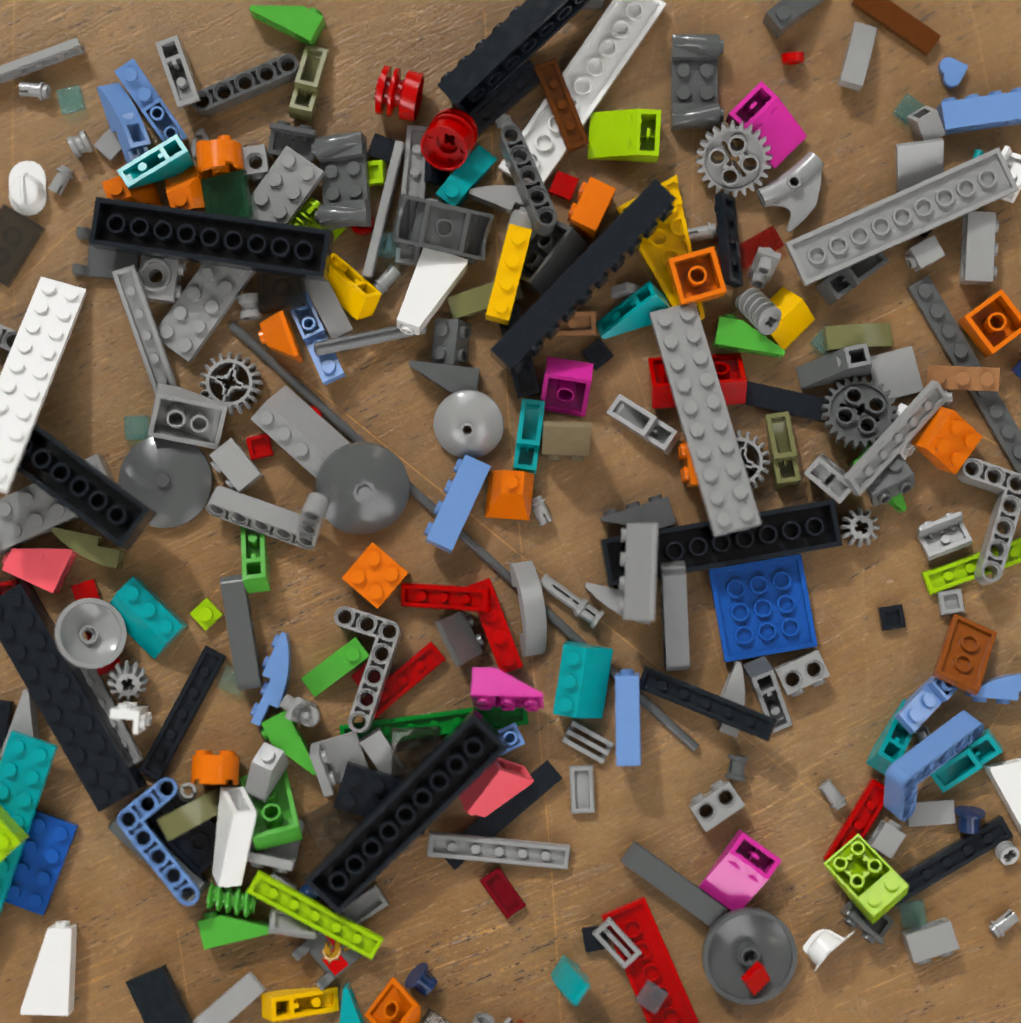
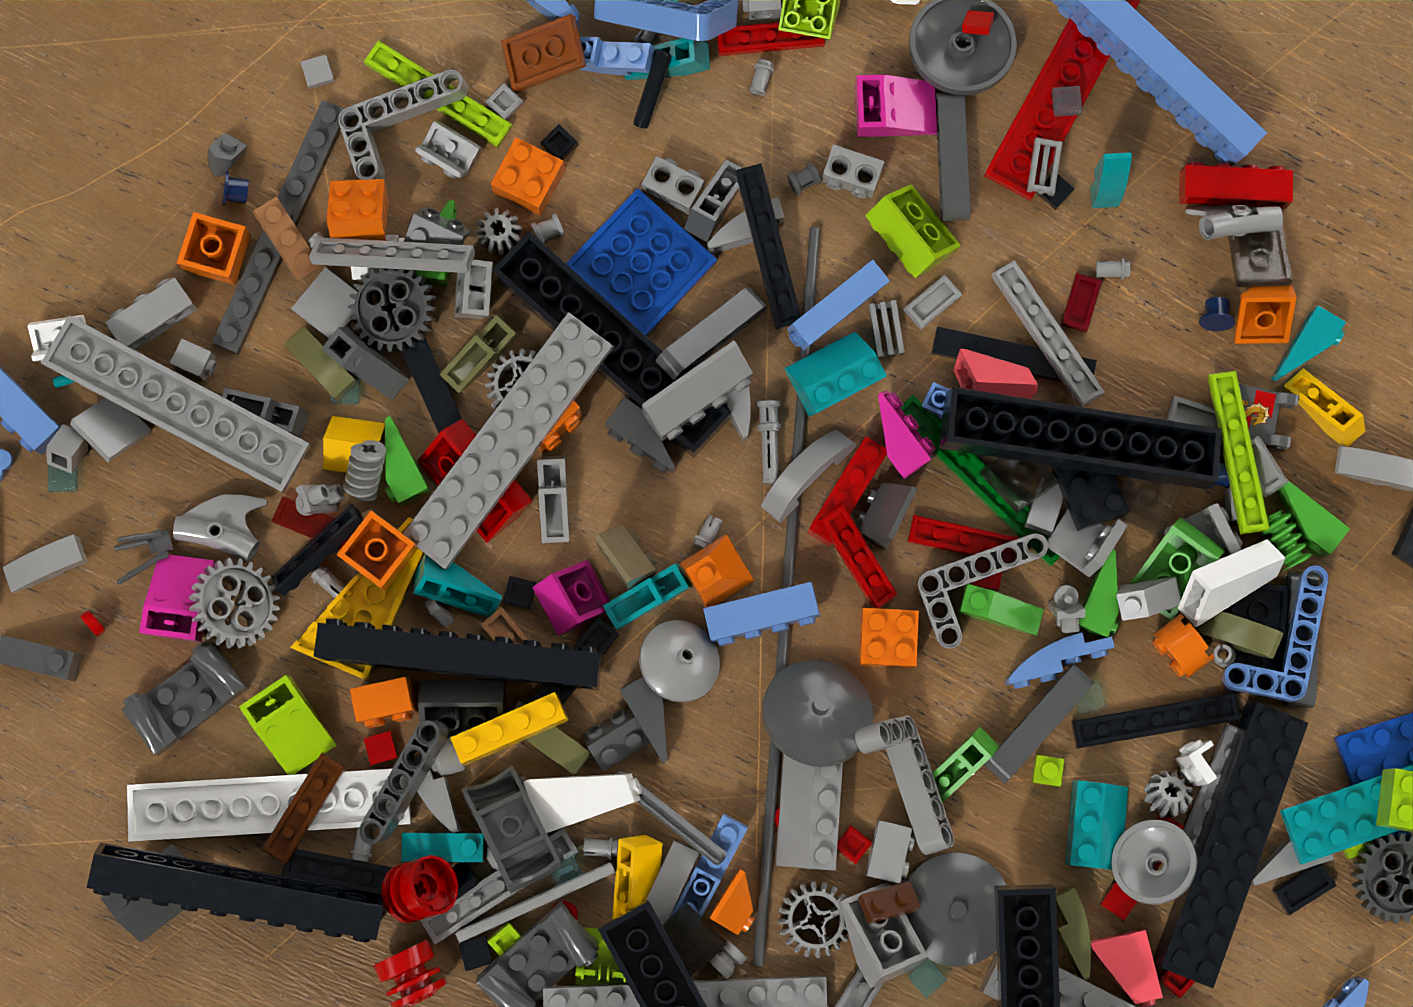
camera: 130 degrees left, 5 degrees down
(202, 438) = (889, 902): none -> reddish brown plate
(508, 933) = (1113, 268): none -> light grey pin
(642, 814) = (912, 230): none -> lime slope
(815, 139) = (157, 541): none -> dark grey plant
(835, 562) = (548, 228): none -> light grey bush
(881, 710) = (652, 89): none -> black axle
(883, 576) = (528, 176): none -> orange brick

